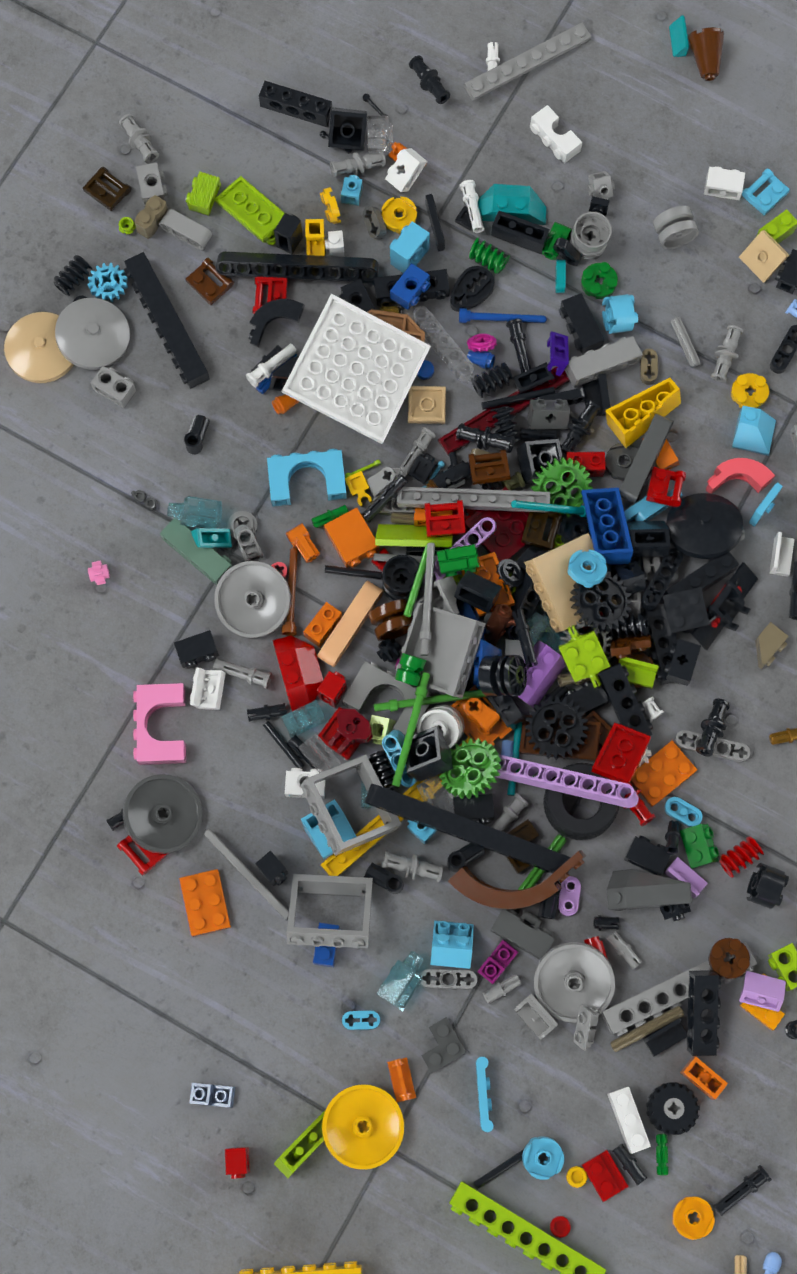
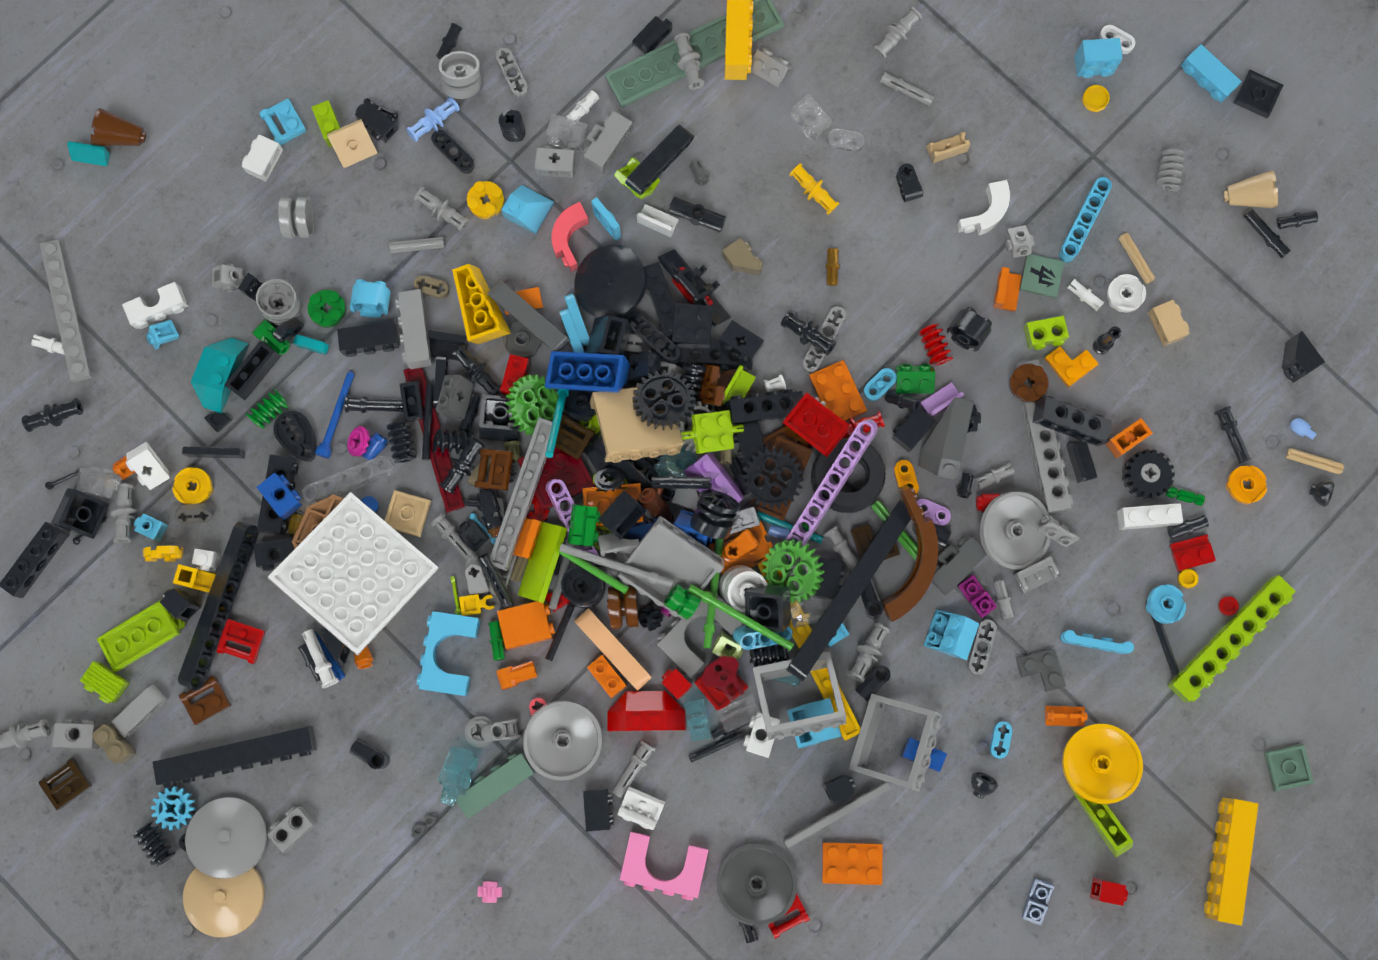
camera: 75 degrees left, 5 degrees up
(126, 221) = (114, 777): lime plate -> none
(212, 537) = (487, 765): teal slope -> none
(266, 712) = (679, 755): black pin -> none
(273, 310) = (260, 639): black arch -> none
(289, 626) = (599, 711): dark orange piece -> none
(312, 1011) = (983, 784): none -> black brick
(402, 981) = (975, 691): clear light blue hinge -> none
(409, 247) = (235, 484): medium azure brick -> none
(446, 524) = (543, 529): red plate -> none
(471, 200) = (200, 409): white pin -> none
(531, 147) = (161, 333): none -> medium azure bracket
(558, 352) = (393, 368): dark purple hinge -> none
(585, 577) = (637, 410): medium azure plate -> none
(596, 862) = (906, 478): none -> light orange plate
(647, 1029) = (1070, 470): dark tan axle -> none
(659, 486) = (559, 312): red plate -> none
(763, 991) = (1064, 361): lavender panel -> none

